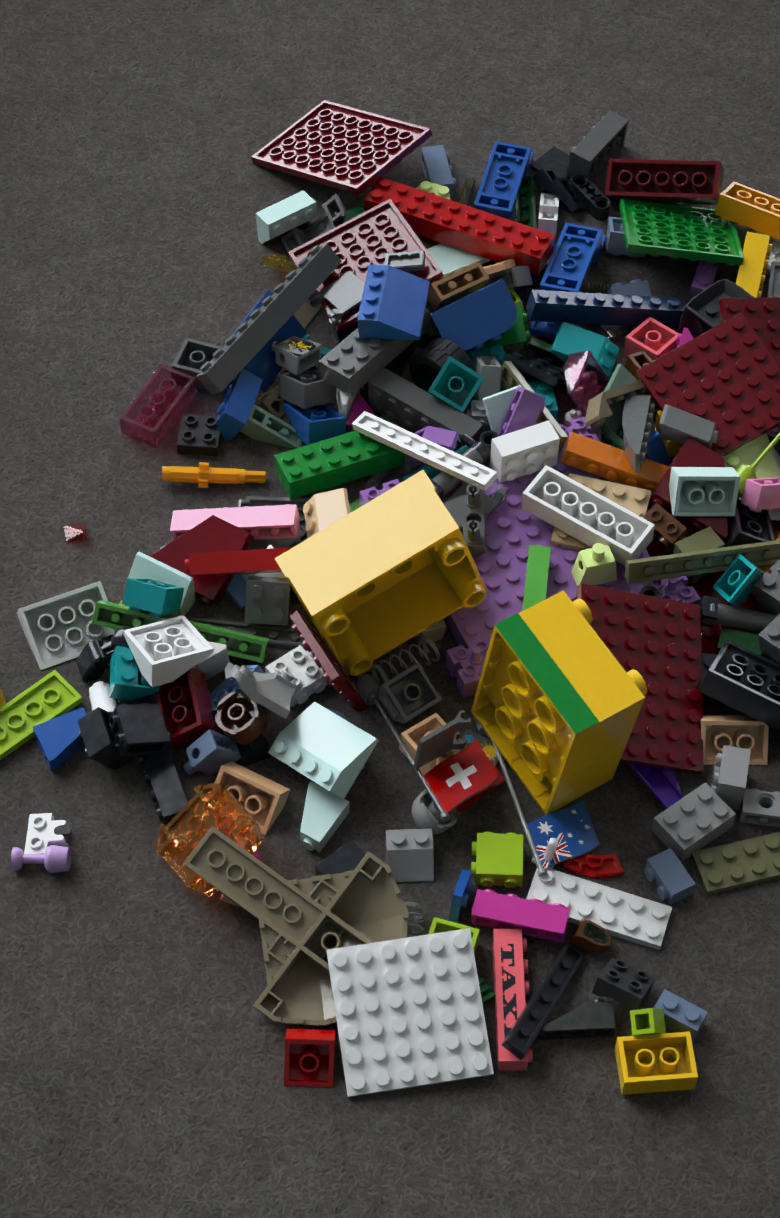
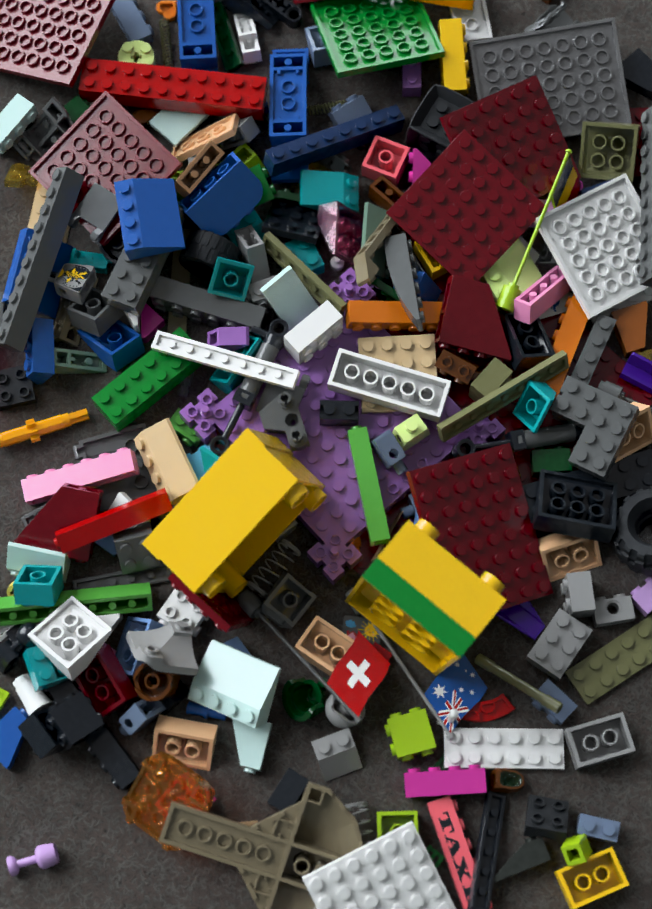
camera: 15 degrees left, 20 degrees up
(45, 832) = (26, 834): white plate -> none
(284, 775) = (200, 710): none -> blue pin
(394, 789) = (295, 700): none -> dark green helmet
(406, 260) = (143, 162): dark grey plate -> none
(441, 741) = (335, 649): dark grey flag -> none
(460, 895) = (392, 784): blue wing -> none
(476, 173) = (167, 9): none -> orange tile
(522, 411) = (298, 296): medium lavender brick -> none
(525, 530) = (339, 413): none -> black brick
(566, 572) = (386, 444): none -> sand blue torso
(641, 847) = (545, 699): none -> olive piece
(678, 425) = (450, 264): light grey slope -> none
(703, 491) = (481, 326): light aqua slope -> none
(709, 927) = (599, 741): none -> light grey brick

